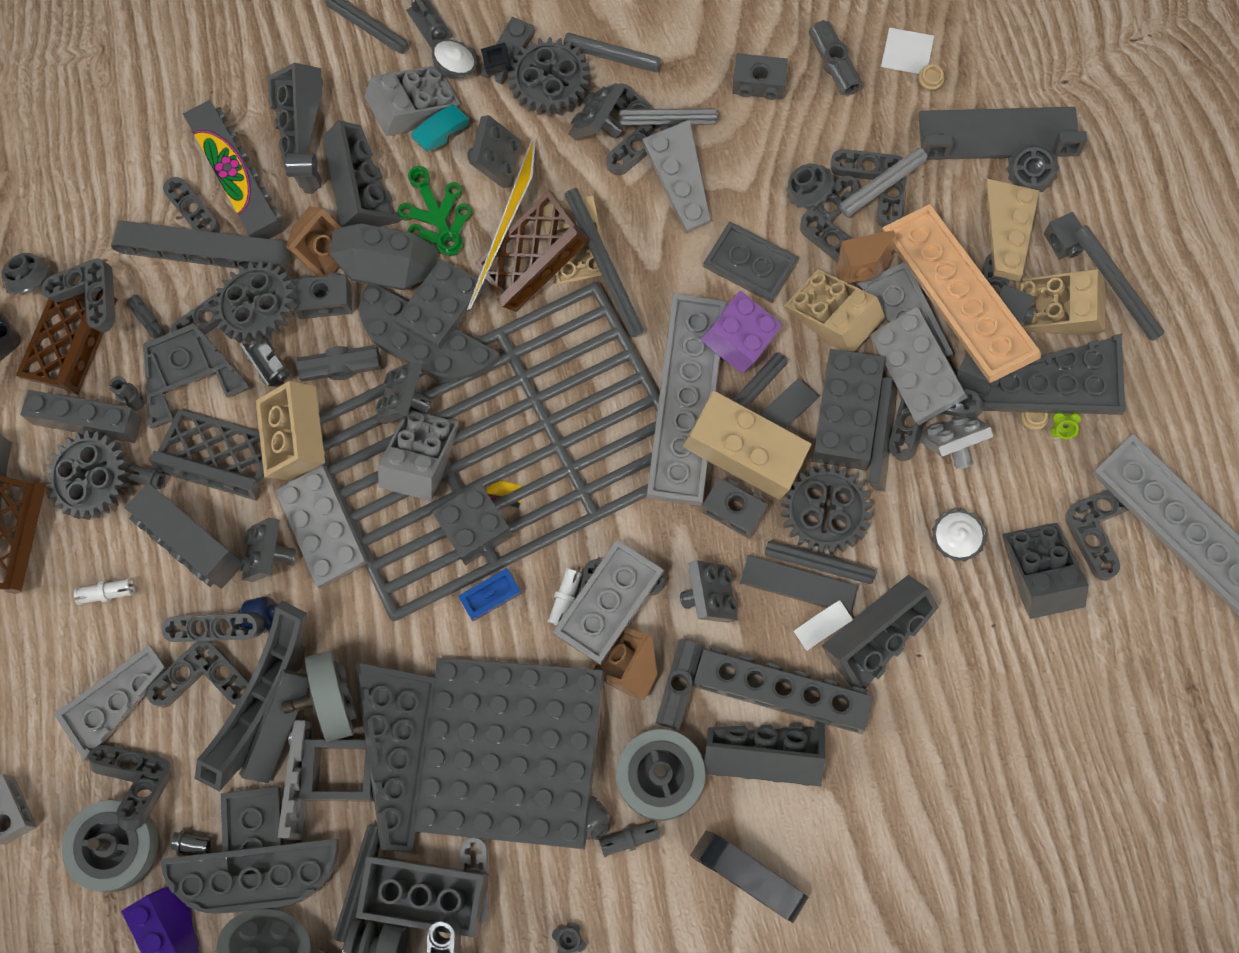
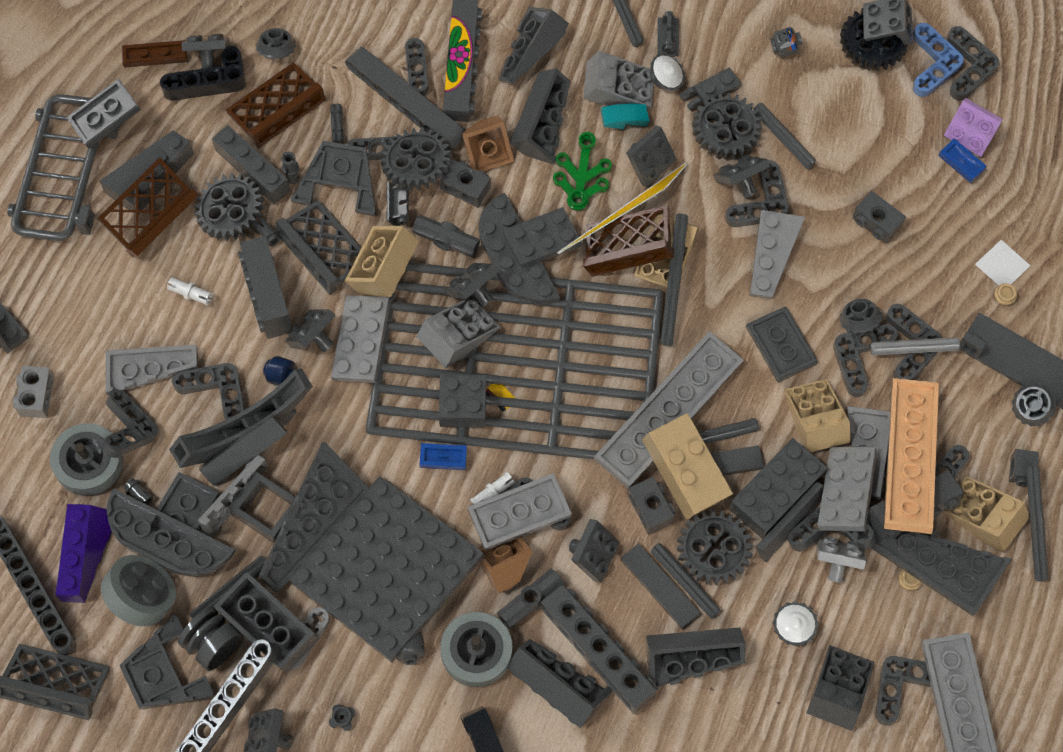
camera: 25 degrees right, 5 degrees down
(95, 276) = (321, 76): dark grey beam -> none
(212, 627) = (245, 359): dark grey beam -> none
(304, 170) = (509, 87): dark grey piece -> none
(328, 696) = (290, 451): light grey wheel -> none
(382, 256) = (524, 181): dark grey wedge -> none
(496, 58) = (696, 90): black tile -> none
(629, 839) = (427, 678): dark grey pin -> none
(667, 116) = (791, 205): dark grey axle -> none
(741, 332) = (737, 387): medium lavender brick -> none
(823, 625) = (657, 624): white sticker -> none
(841, 69) = (942, 248): dark grey piece -> none
(865, 257) = (863, 390): medium nougat slope -> none
(1010, 226) = (989, 432): tan wing -> none
(1066, 432) = (923, 603): lime plate -> none

